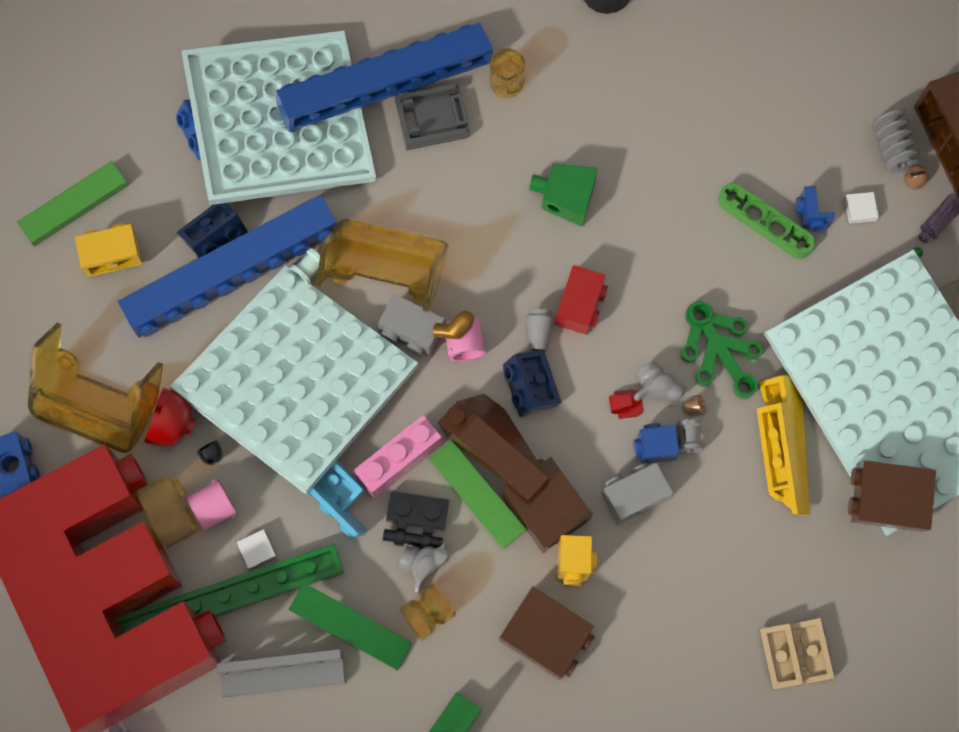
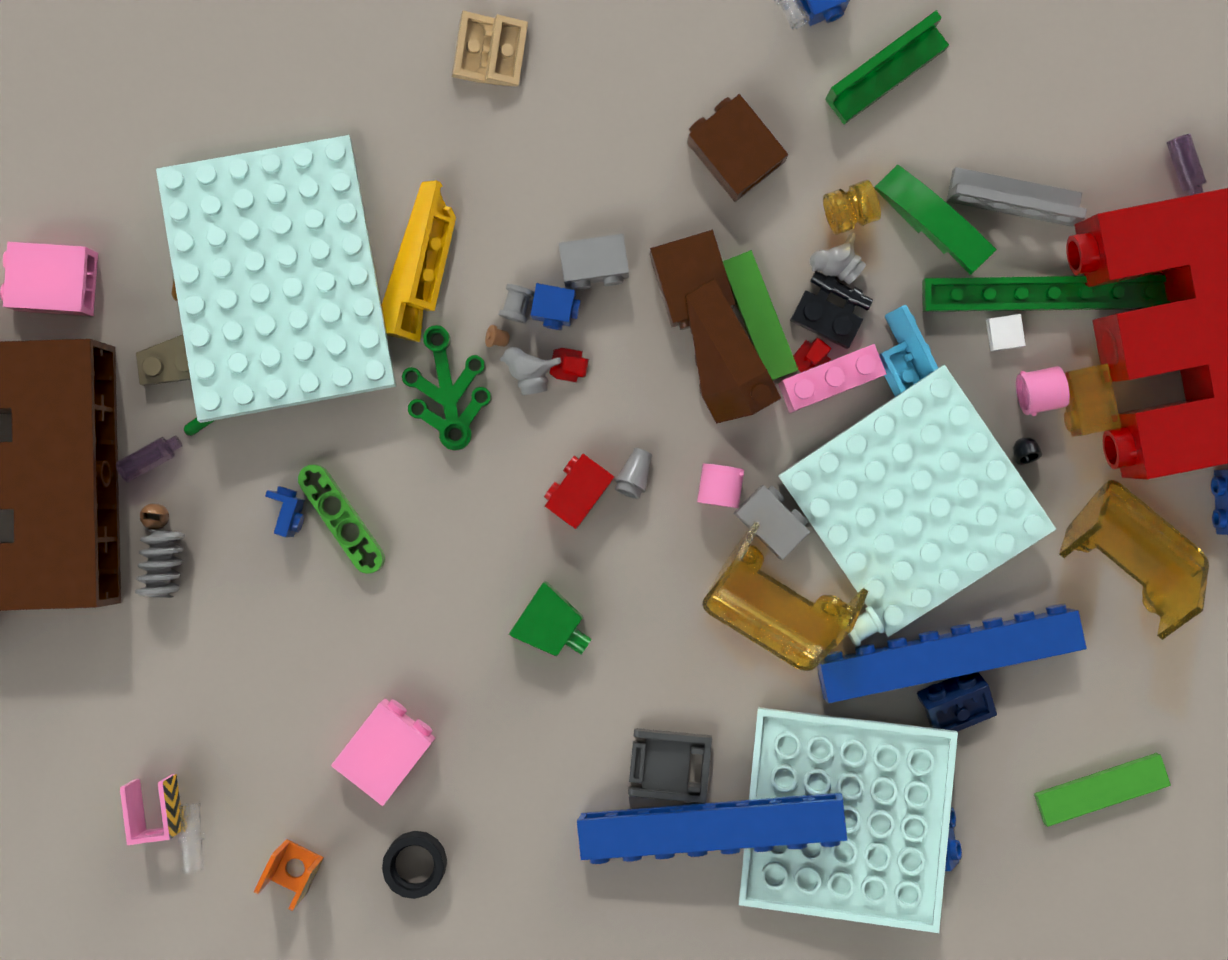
camera: 155 degrees left, 15 degrees up
(108, 250) = (1079, 716): yellow brick -> none
(169, 420) = (1064, 494): red cylinder -> none
(421, 477) = (811, 354): none -> red piece
(456, 328) = (729, 492): pearl gold arm -> none
(507, 73) = (569, 788): clear yellow wheel -> none
(531, 382) = (663, 416): dark blue bracket -> none
(575, 560) = (684, 205): yellow brick -> none
(662, 57) = (384, 750): none -> bright pink brick
(861, 207) = (230, 500): white tile -> none
(892, 496) = (332, 163): reddish brown brick -> none

